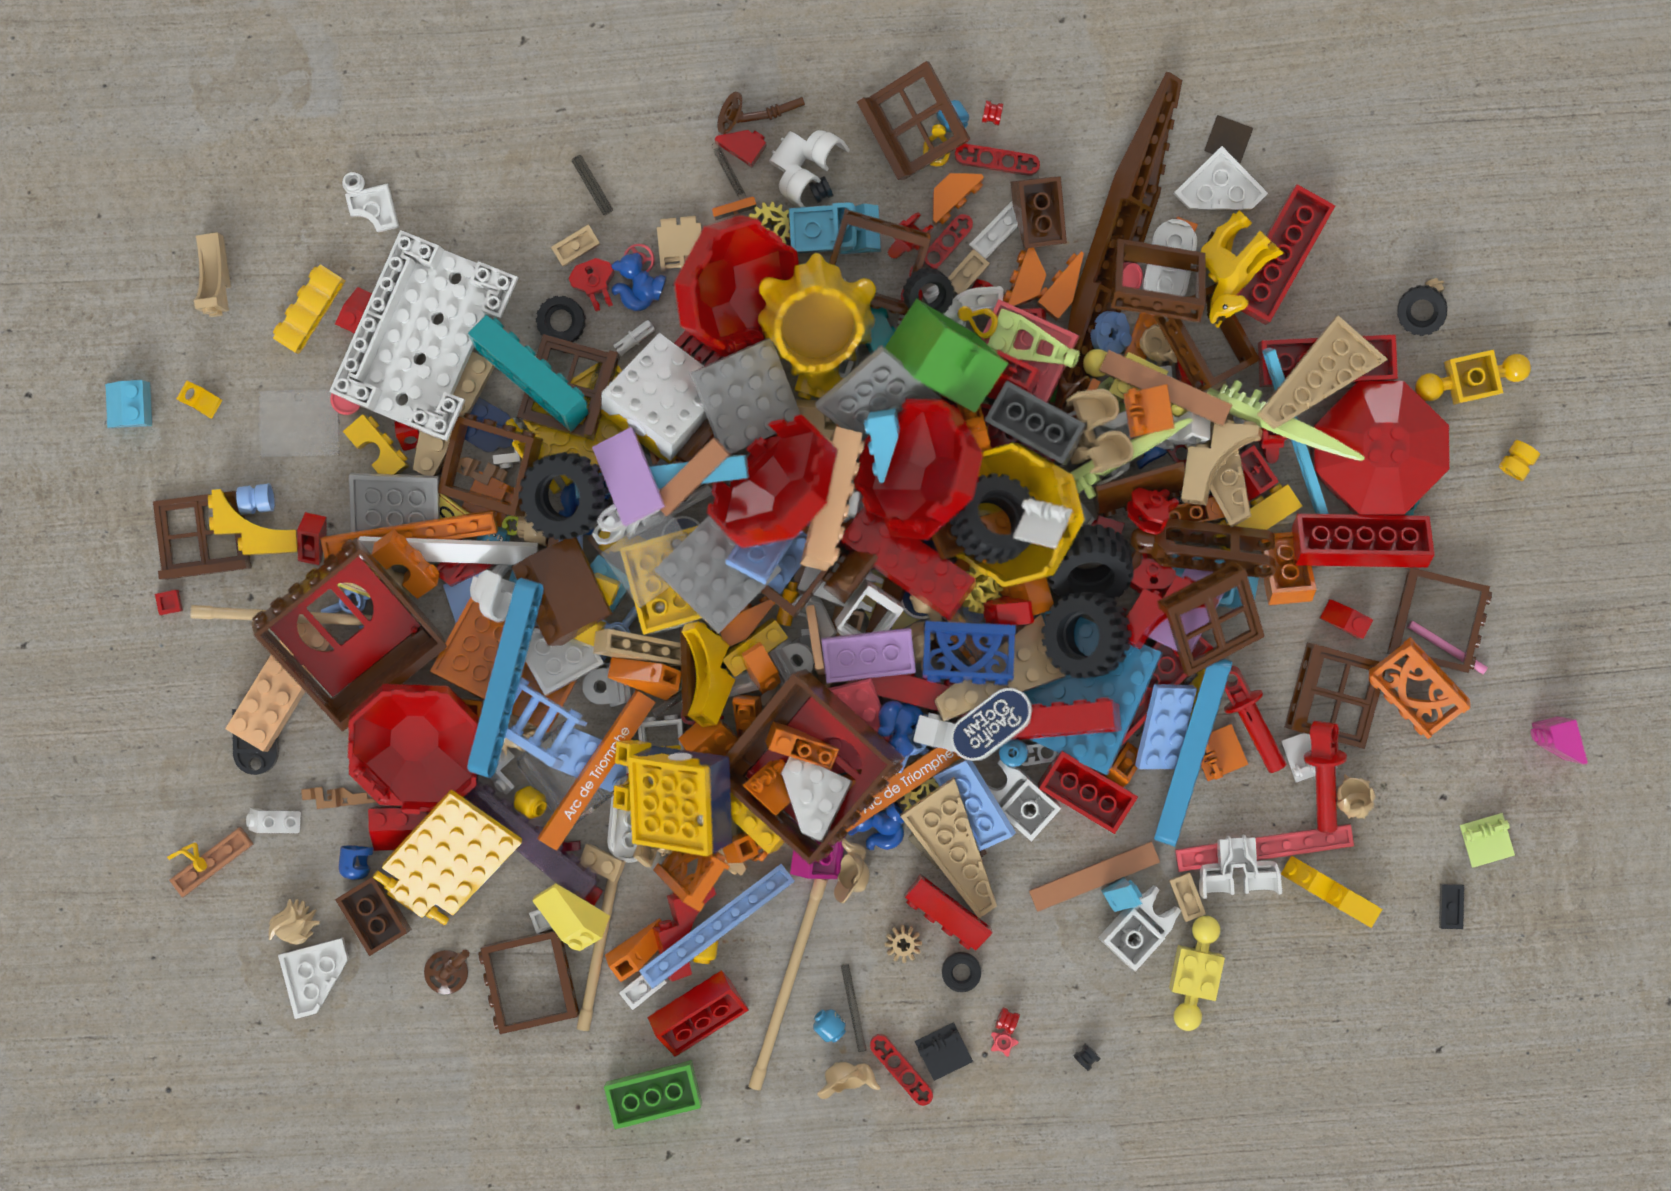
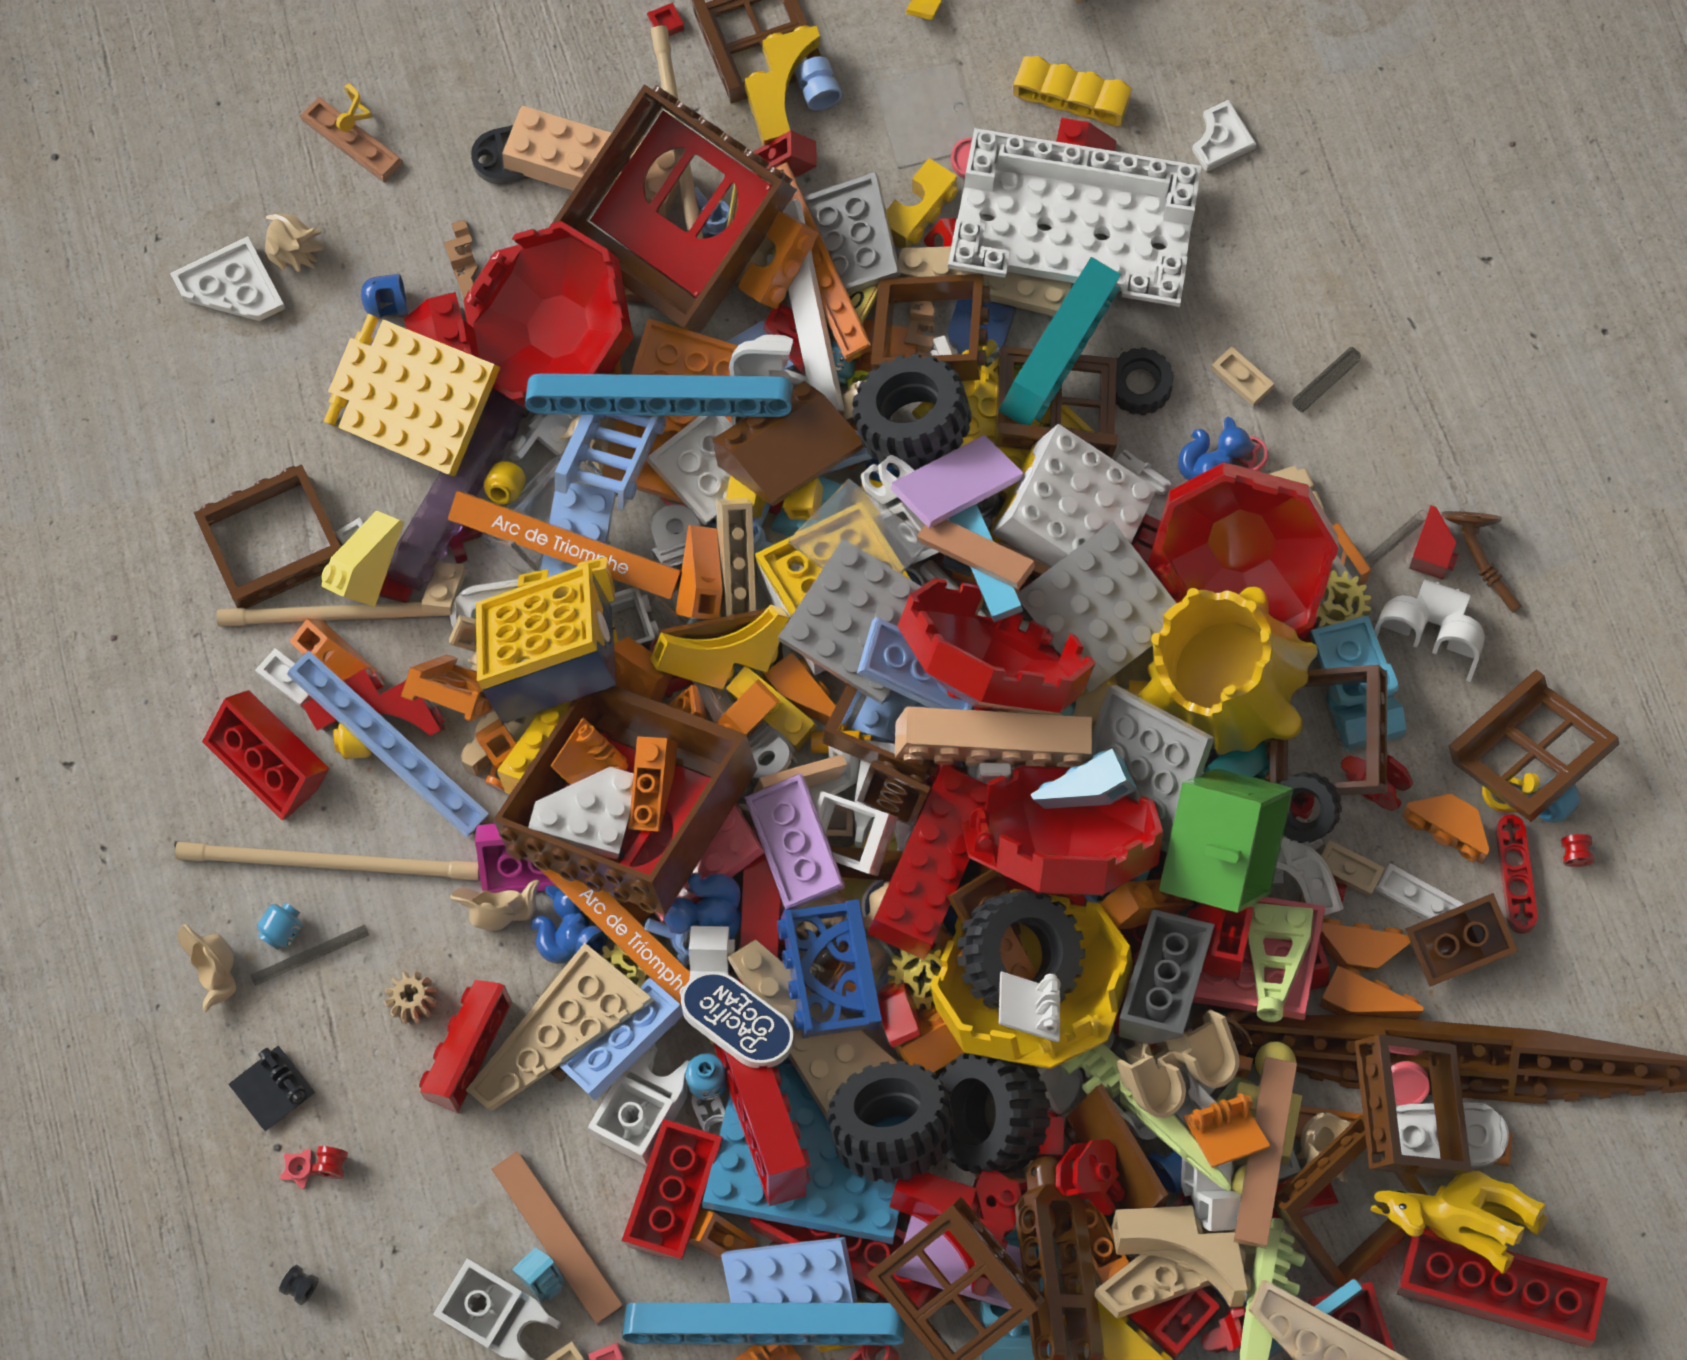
camera: 85 degrees right, 20 degrees down
(273, 821) = (417, 196): white bracket -> none
(350, 178) = (1245, 105): white plate -> none
(373, 915) = (318, 331): reddish brown brick -> none
(449, 969) = (265, 435): reddish brown dish -> none
(594, 282) = (1202, 404): red hinge -> none
(653, 1094) = (146, 720): bright green brick -> none
(821, 189) = (1405, 655): black wheel -> none
(899, 1071) = (240, 1040): red beam -> none
(943, 251) = (1370, 833): red beam -> none
(961, 958) = (392, 1104): black tyre -> none
(966, 313) = (1292, 866): yellow piece -> none
(1120, 332) = (1339, 1081): medium blue plate -> none
(1220, 186) = (1573, 1182): white plate -> none
(1230, 135) = (1642, 1181): dark brown sticker -> none

